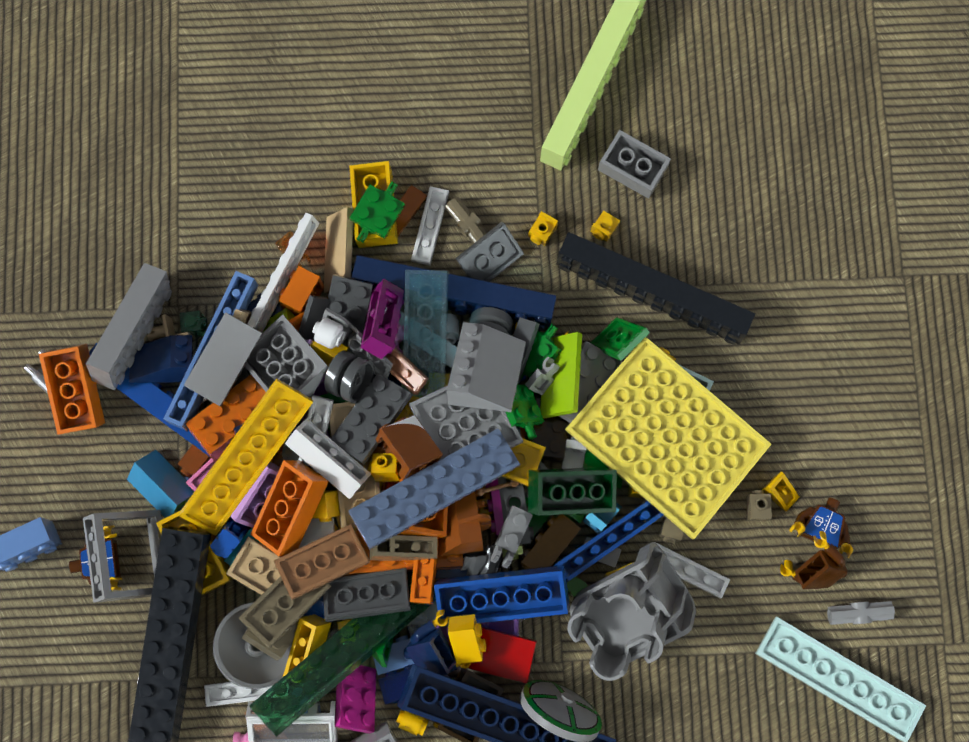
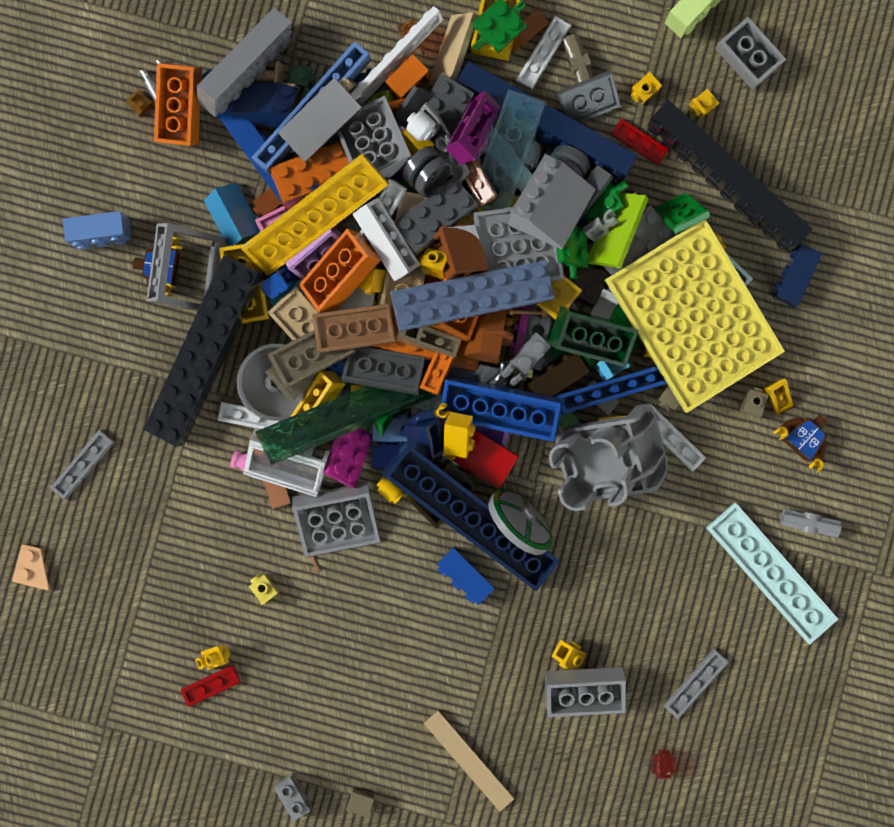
camera: 25 degrees right, 10 degrees up
(31, 400) = (139, 103): none -> pearl gold tile
(554, 282) = (639, 142): none -> red tile
(755, 364) = (796, 275): none -> dark blue brick
(821, 569) = (788, 475): reddish brown torso -> none

